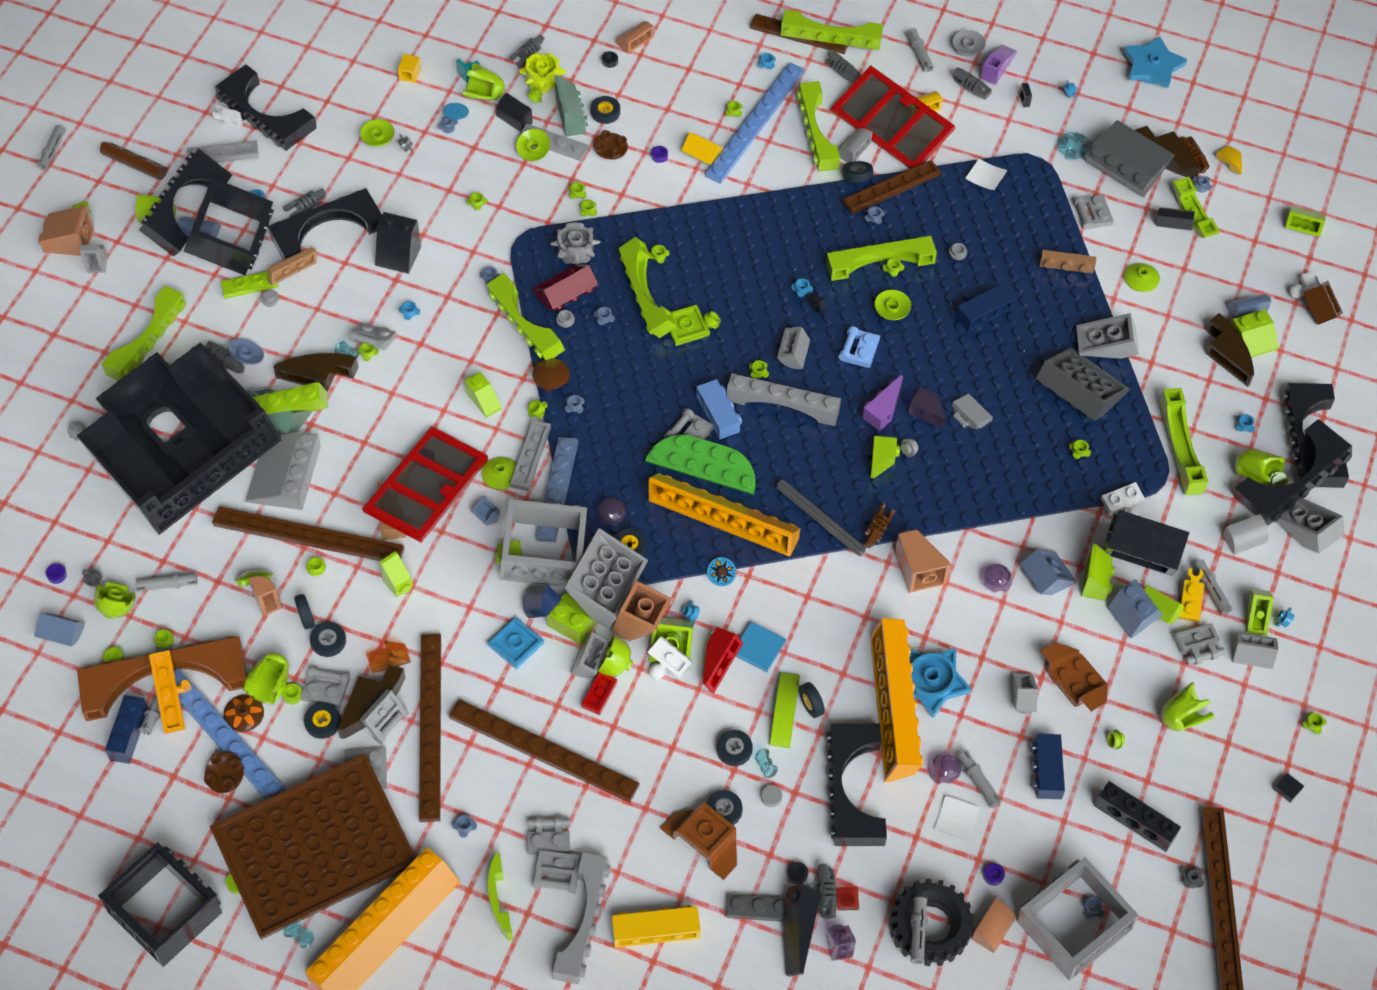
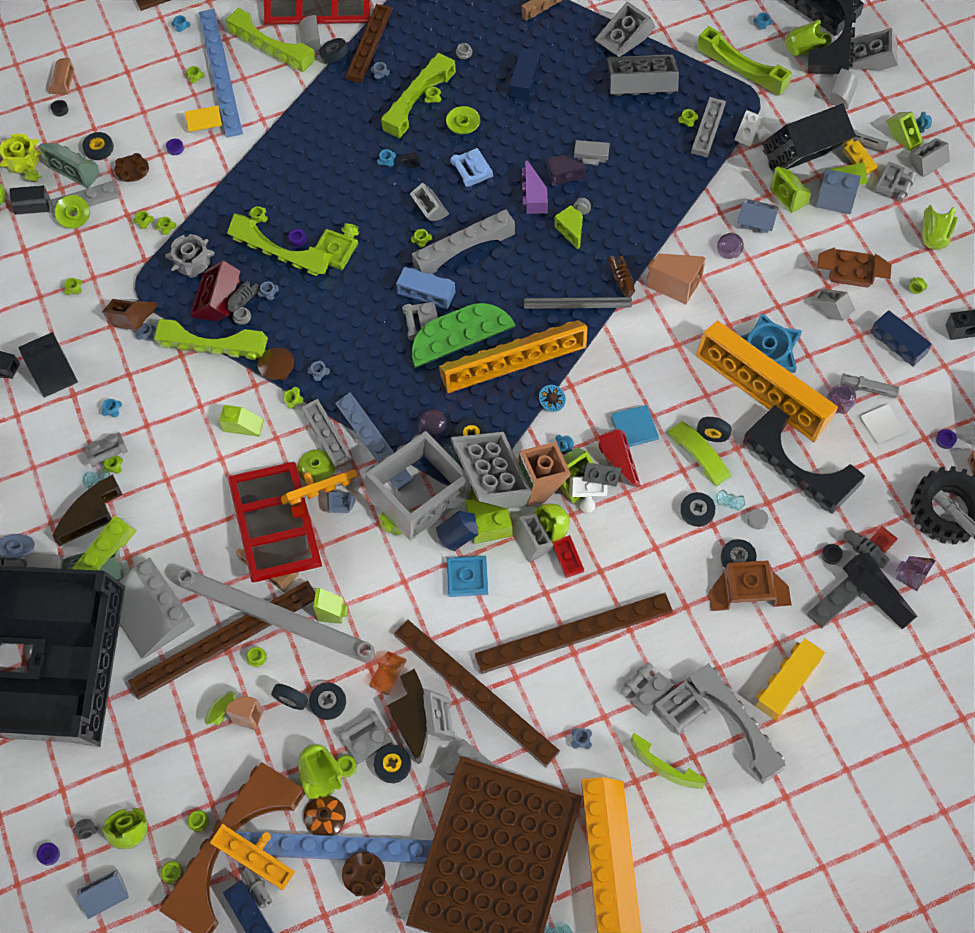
camera: 40 degrees left, 5 degrees up
(175, 580) = (146, 780): light grey pin -> none
(356, 550) = (276, 615): none -> light grey piece
(478, 485) = (312, 489): none -> light orange plate
(491, 250) = (128, 312): none -> reddish brown slope
(579, 303) = (242, 296): none -> dark grey hinge
(669, 294) = (297, 237): none -> dark purple tile
(686, 655) = (600, 474): none -> dark grey hinge
(1087, 470) = (708, 127): none -> light grey plate

